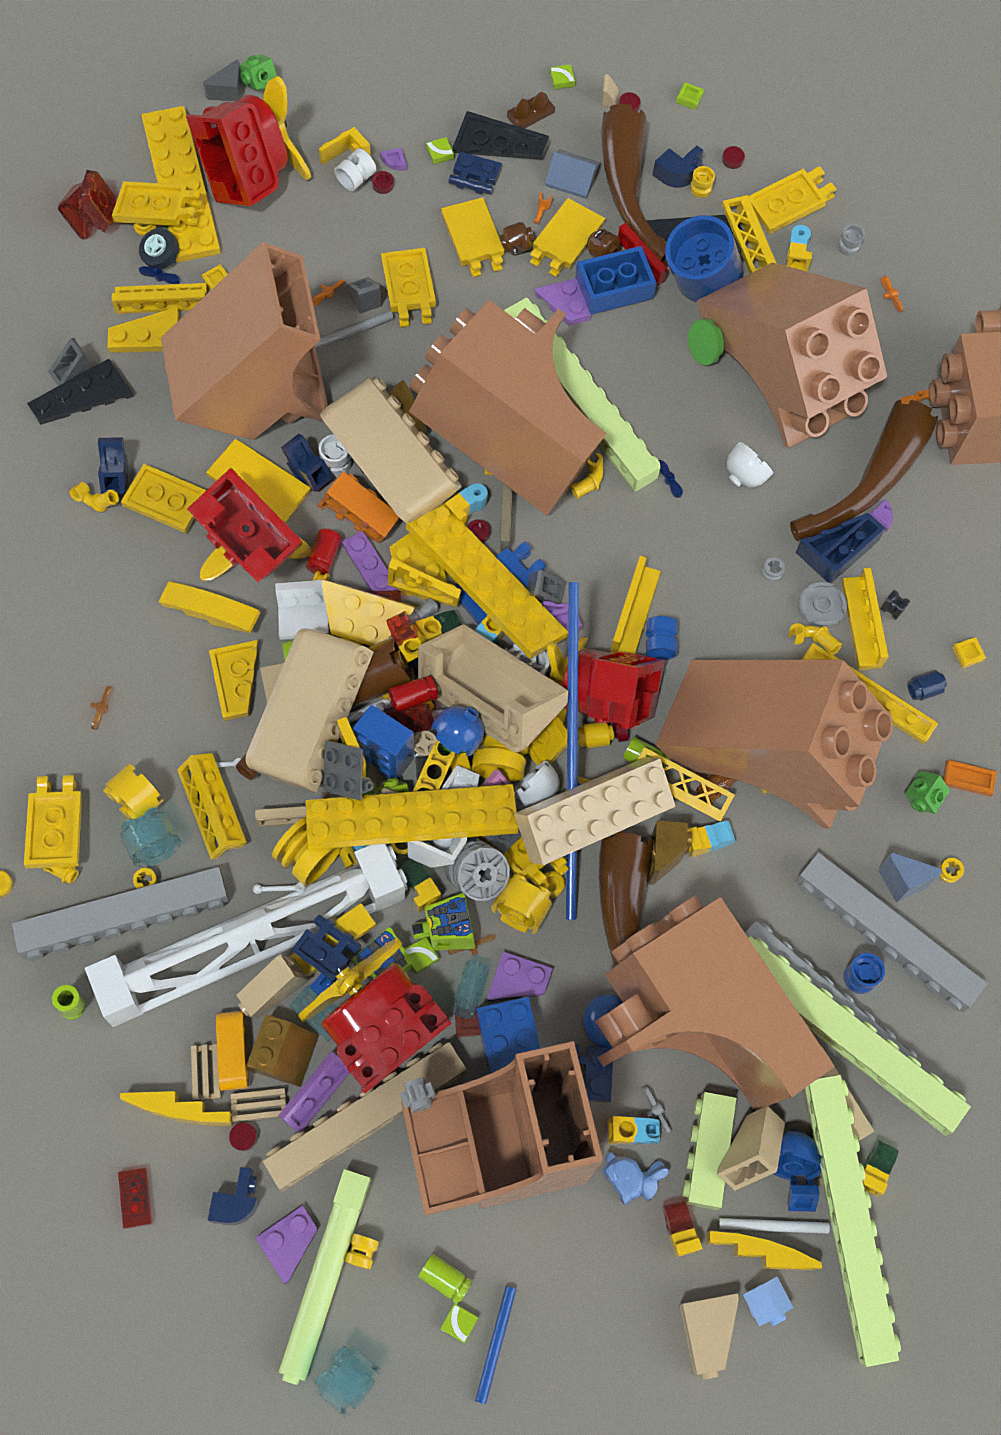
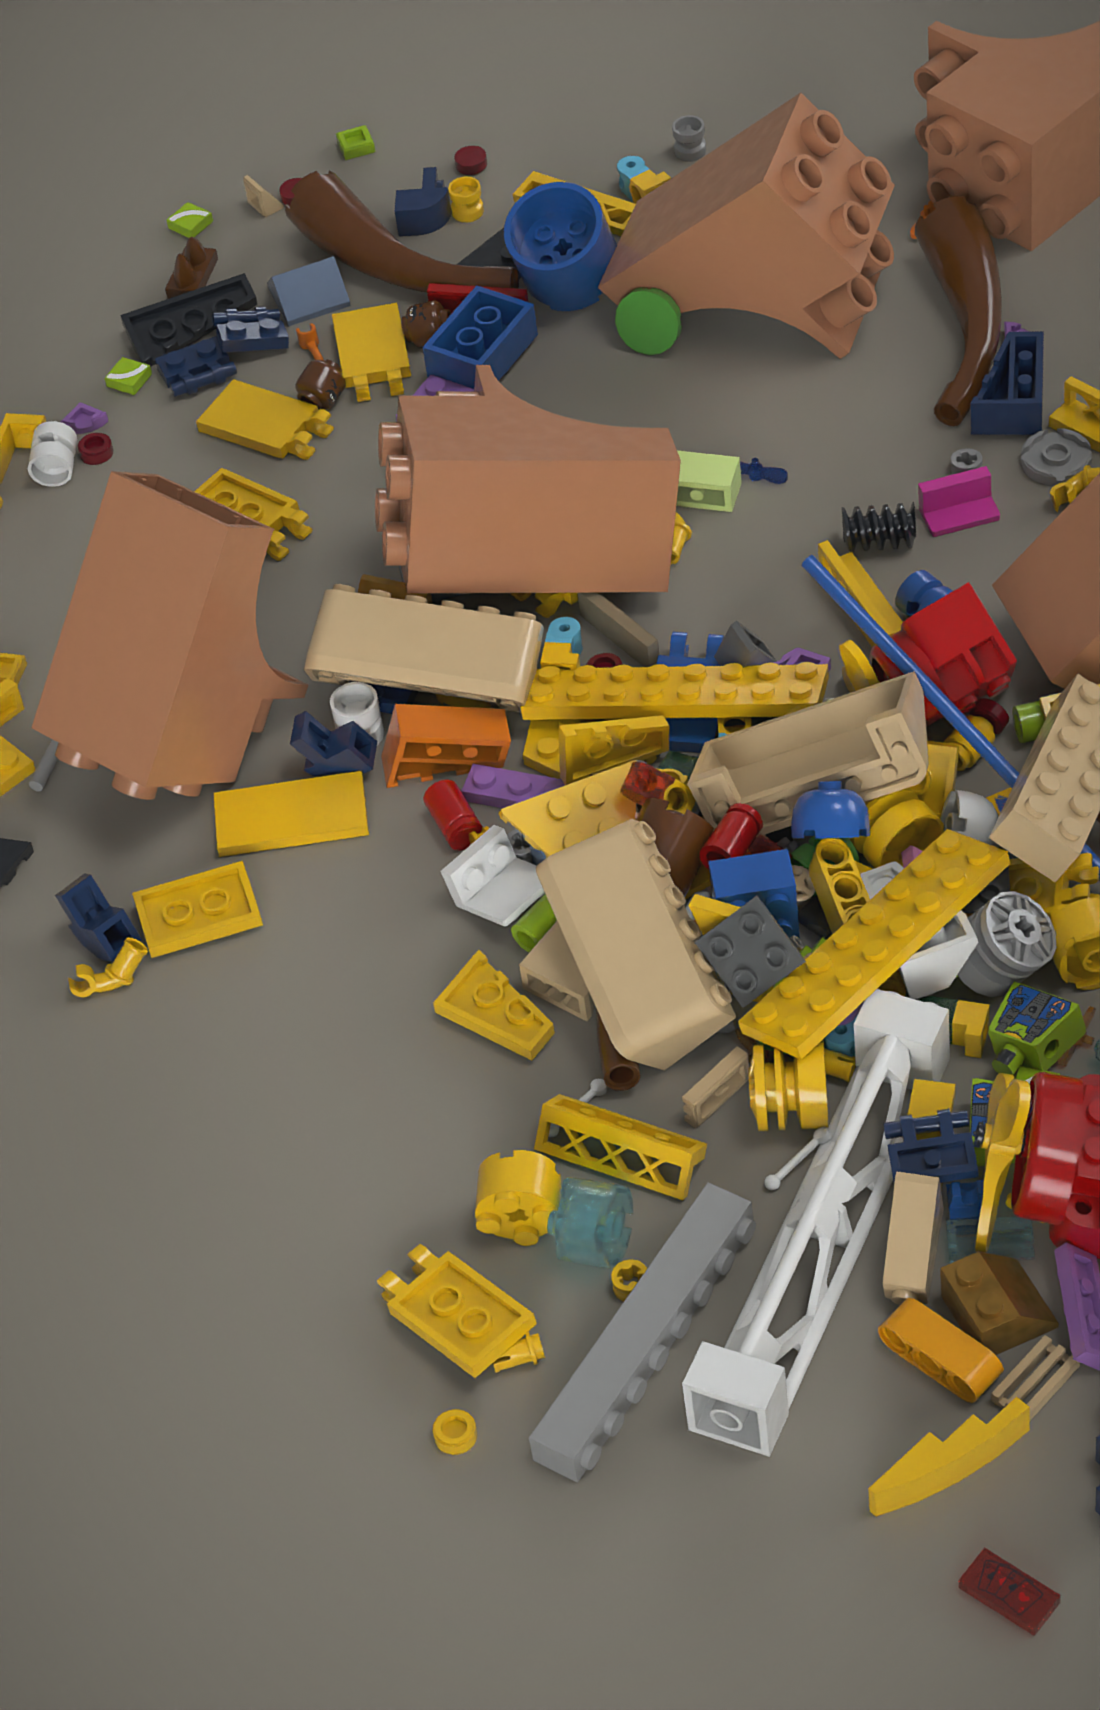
camera: 30 degrees left, 20 degrees down
(68, 1002) = (694, 1457): lime piece -> none
(101, 707) = (366, 1162): clear orange piece -> none
(195, 1074) = (941, 1386): tan tile -> none
(210, 607) = (390, 959): yellow slope -> none
(243, 530) = (354, 829): red brick -> none
(243, 1136) = (1056, 1424): dark red tile -> none
(517, 178) = (250, 330): none -> dark blue plate
(685, 570) = (879, 527): none -> black piece
(742, 589) = (957, 501): none -> dark pink panel
(747, 467) = (830, 392): white cylinder -> none
(791, 199) = (582, 146): yellow tile -> none

